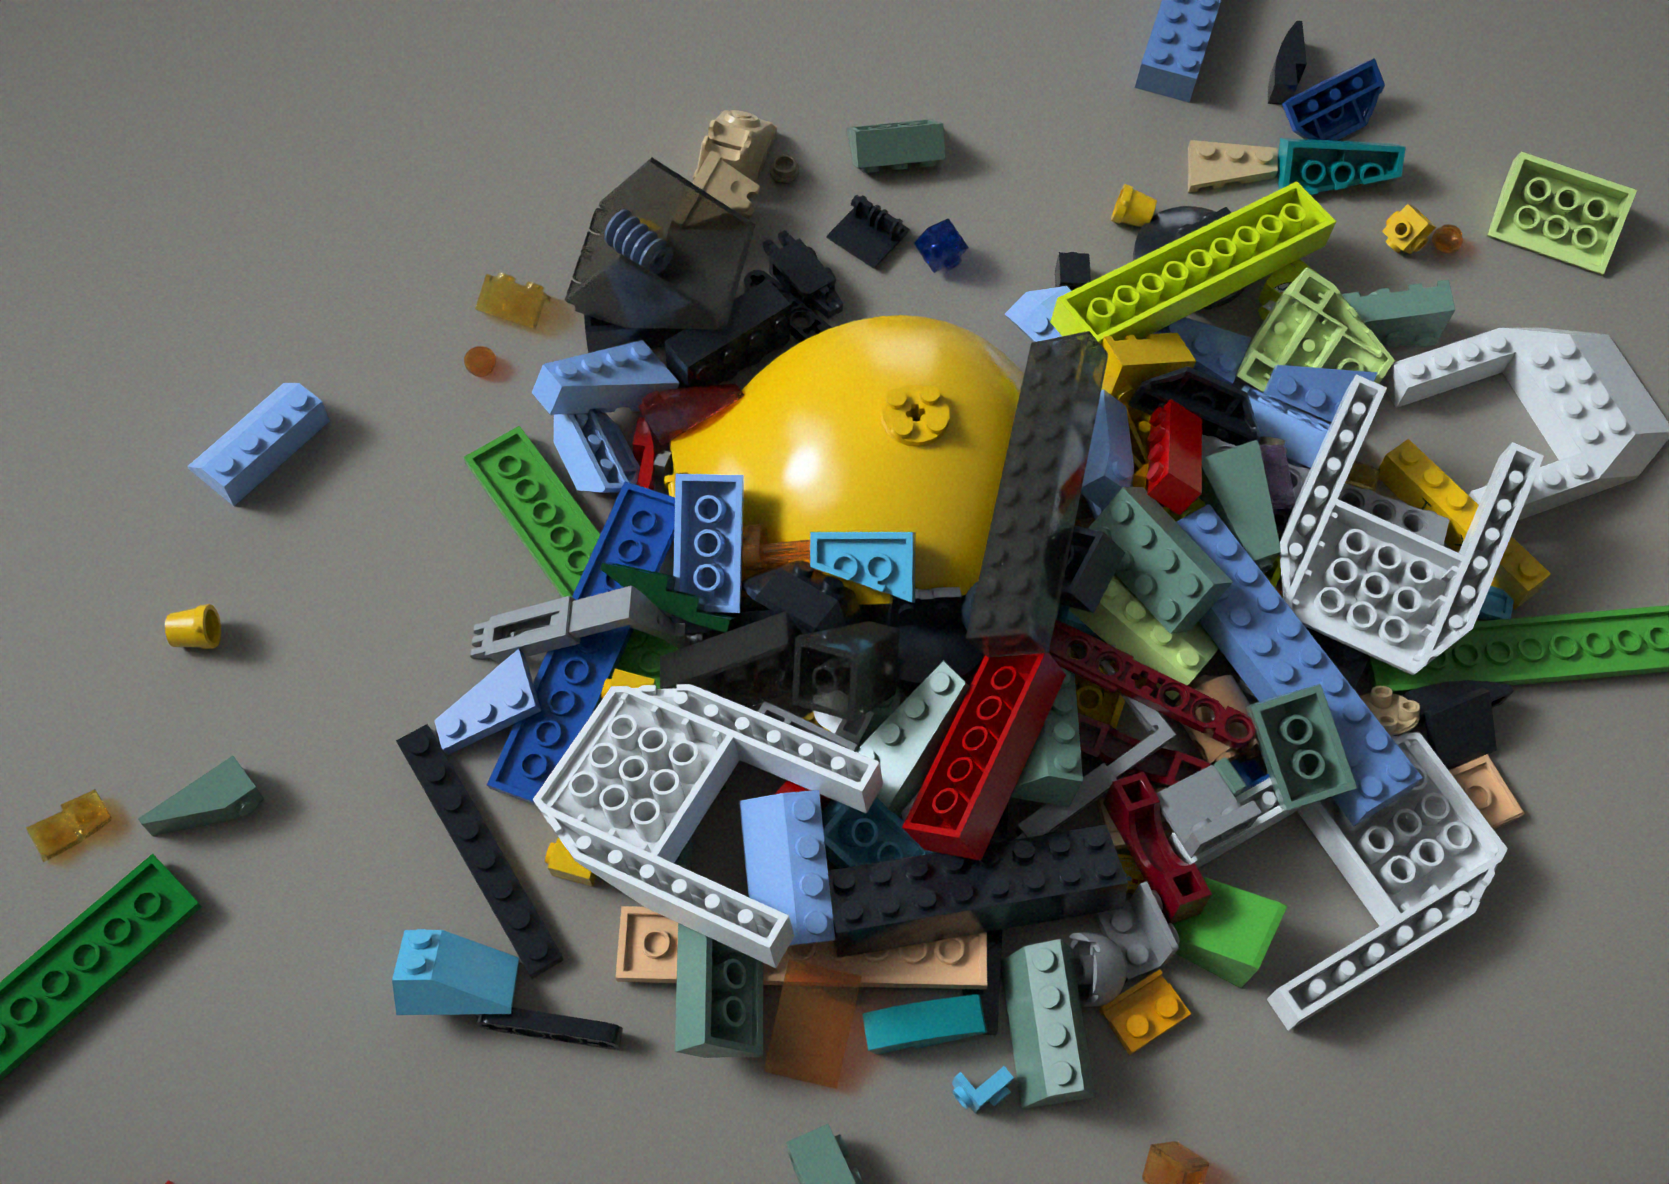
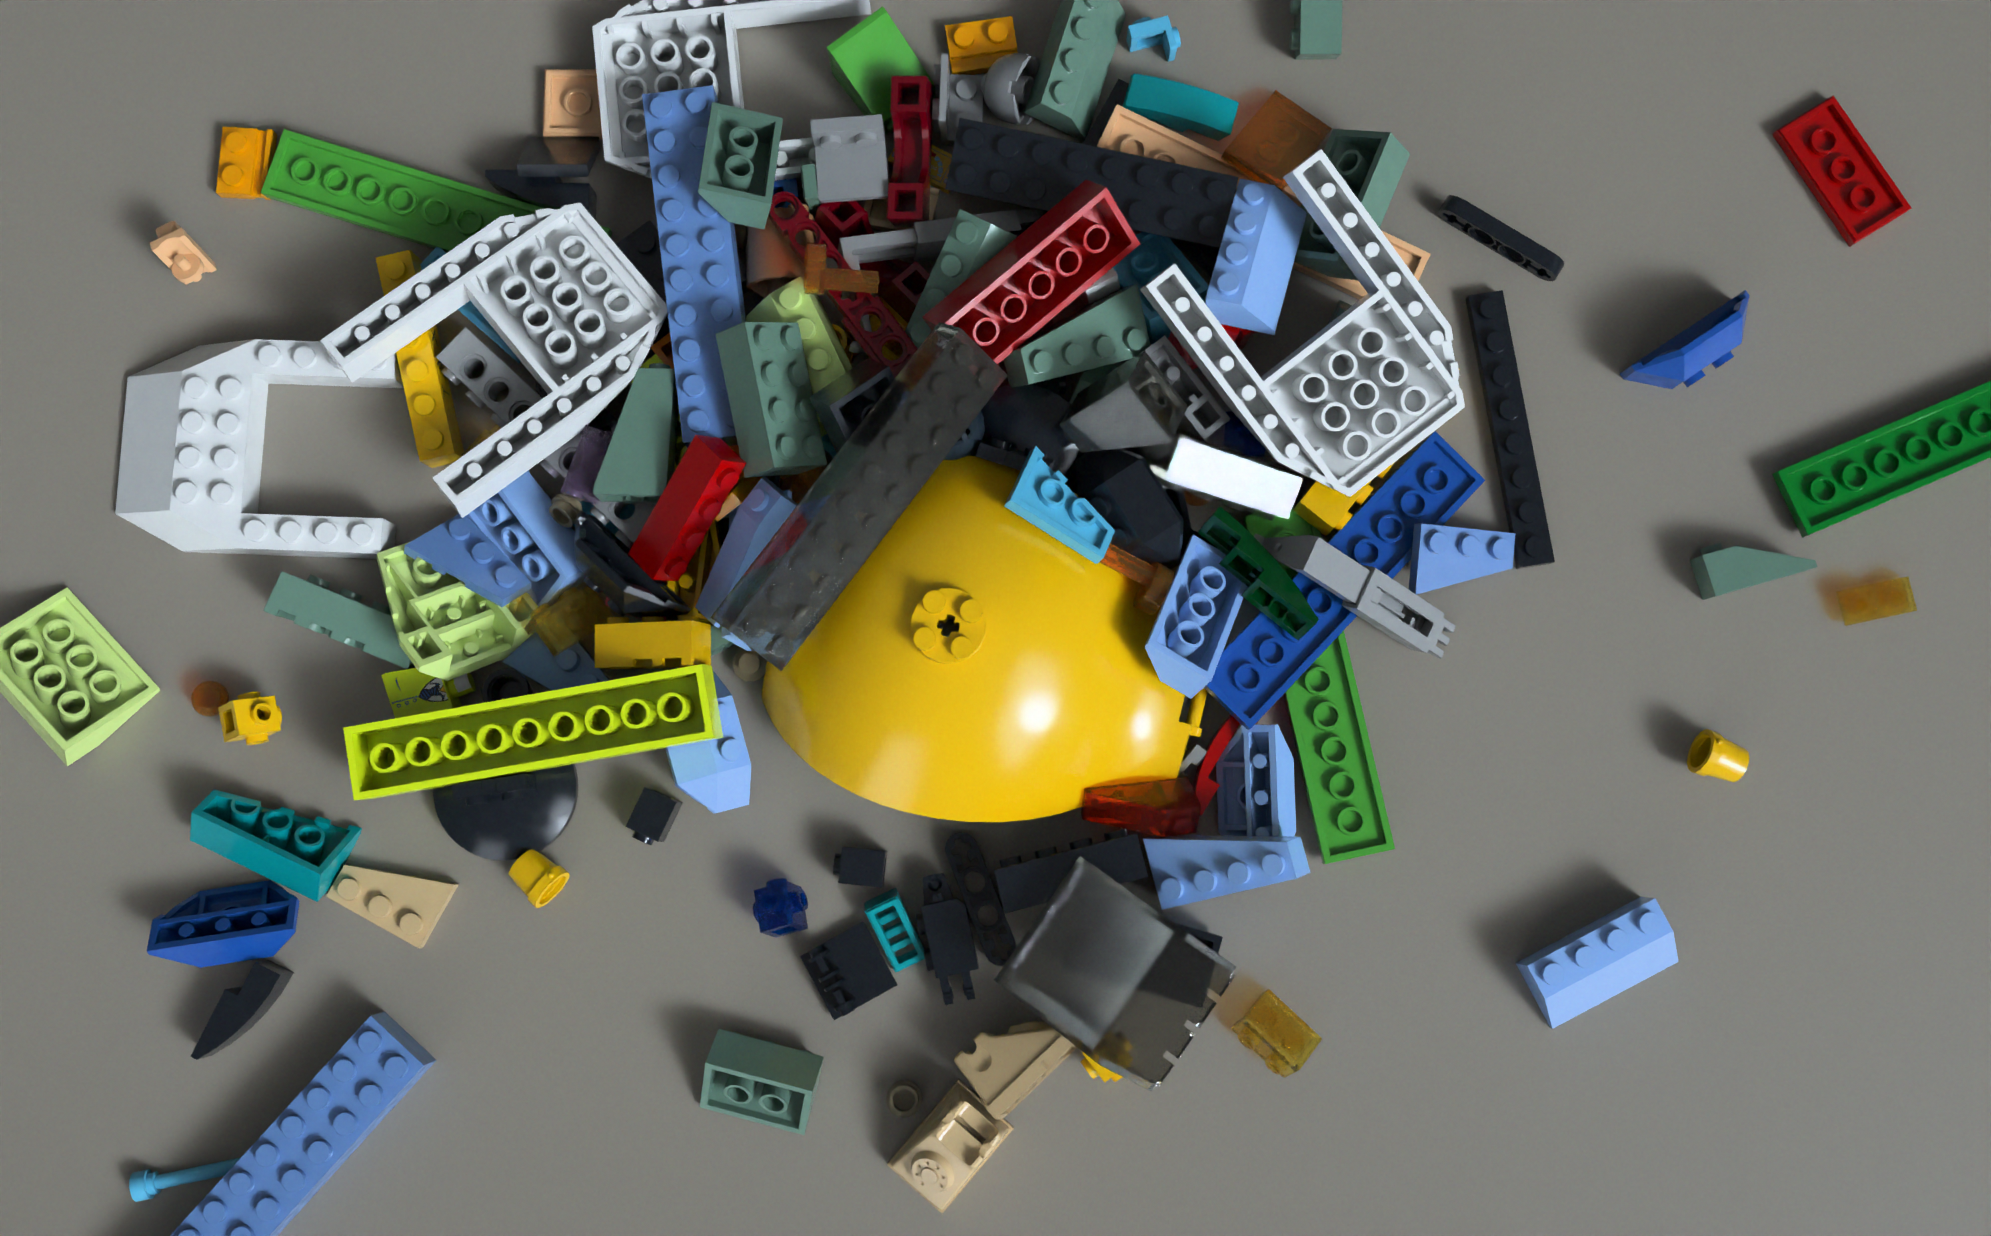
camera: 150 degrees left, 20 degrees up
(315, 993) = (1694, 348): none -> blue wedge
(452, 976) = (1572, 305): medium azure slope -> none
(480, 361) = (1337, 970): clear orange plate -> none
(637, 242) = (1134, 1011): sand blue piece -> none
(858, 284) = (881, 903): none -> teal slope
(894, 296) = (860, 866): none -> black brick
(1173, 669) = (819, 278): none -> clear orange piece
(1224, 360) = (569, 619): none -> clear yellow bracket
(1233, 311) = (504, 685): none -> black piece
(1391, 710) = (622, 197): tan dish -> none

